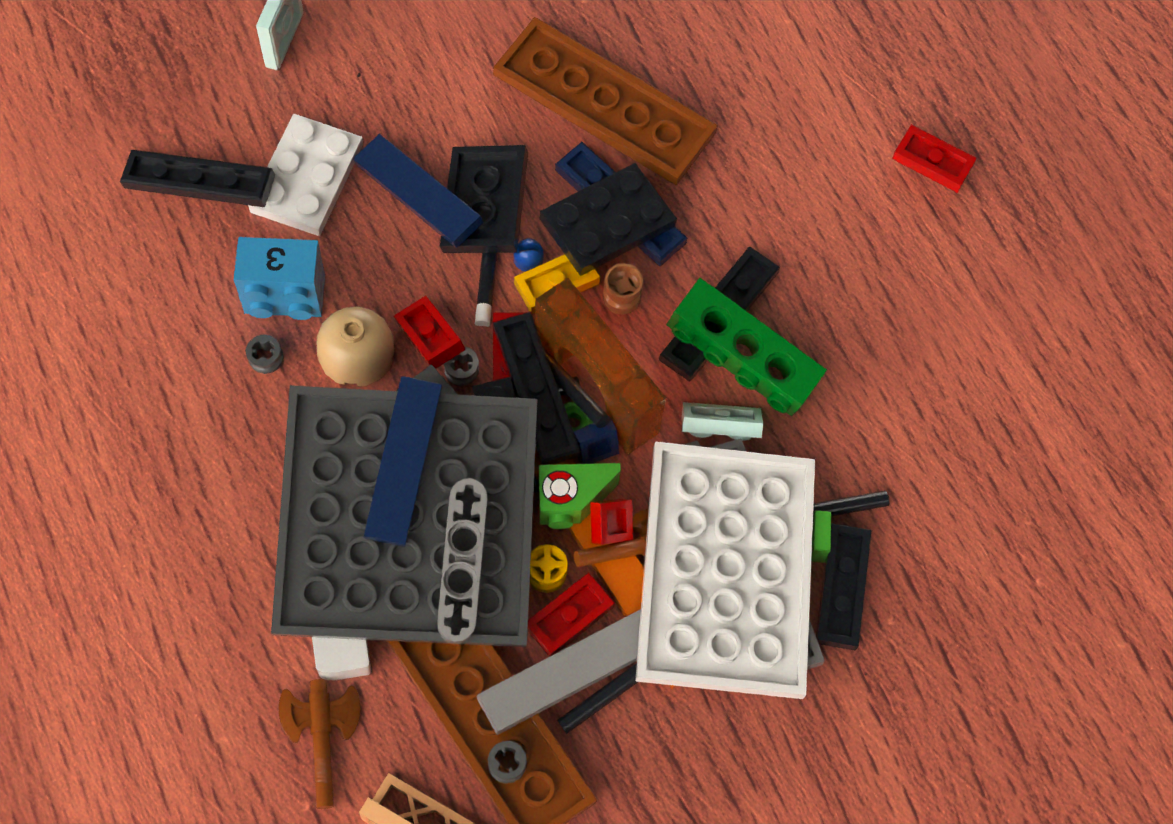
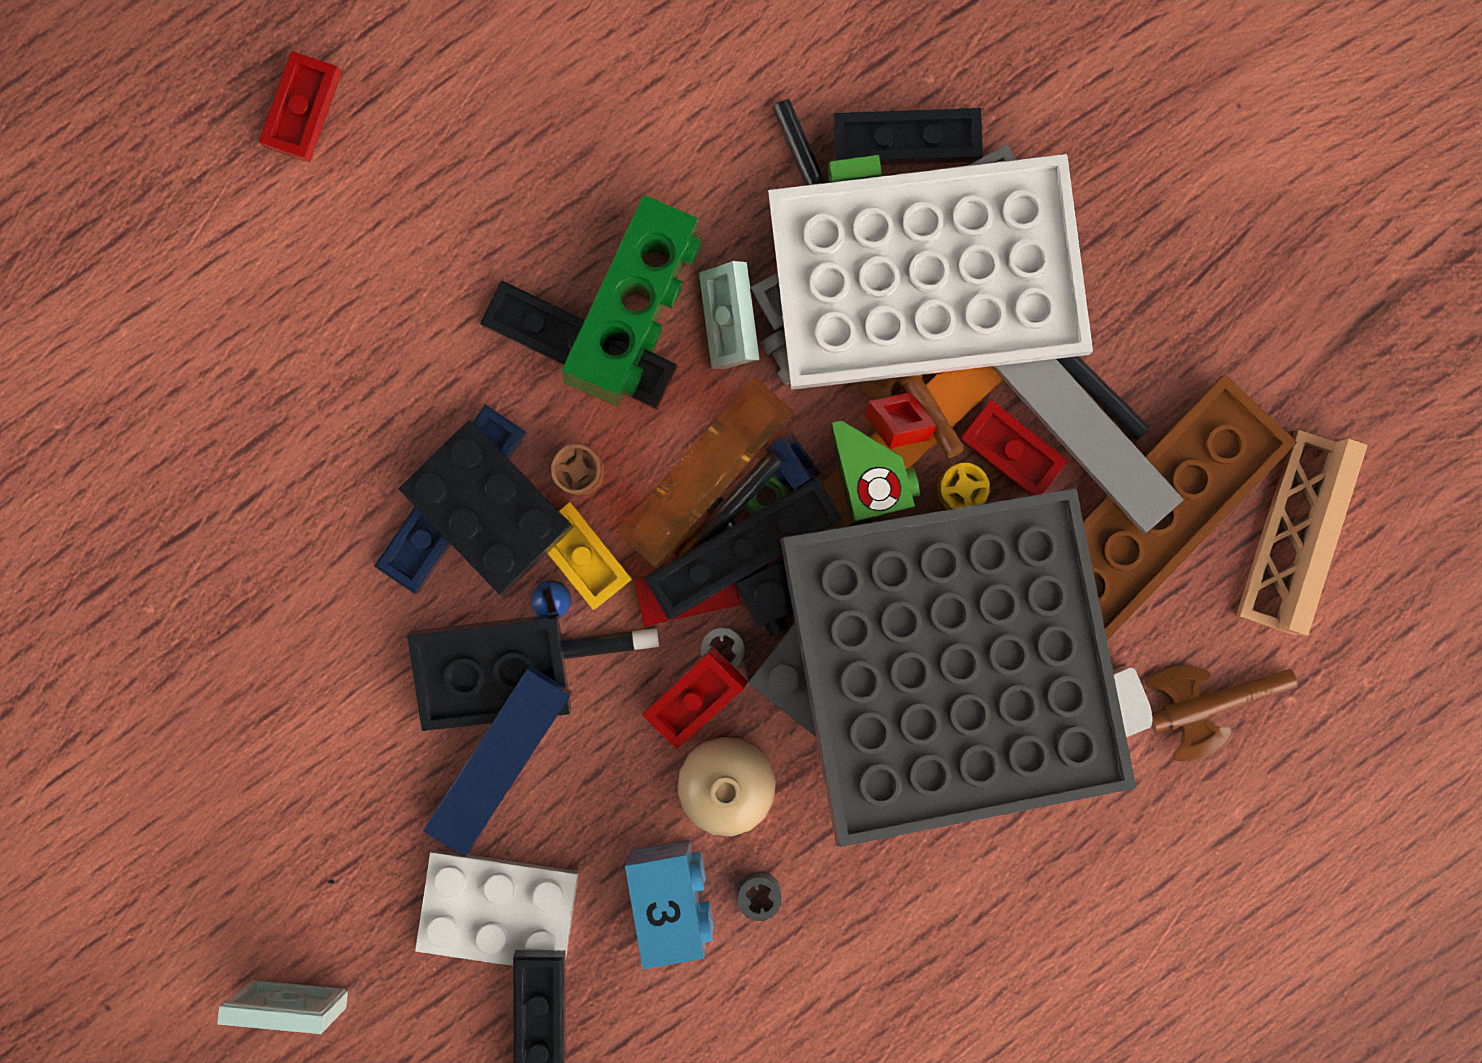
camera: 90 degrees left, 20 degrees up
(403, 461) = (903, 682): dark blue tile -> none
(462, 560) = (1005, 585): light grey beam -> none
(494, 765) = (1218, 496): dark grey bush -> none
(605, 100) = (305, 550): dark orange plate -> none

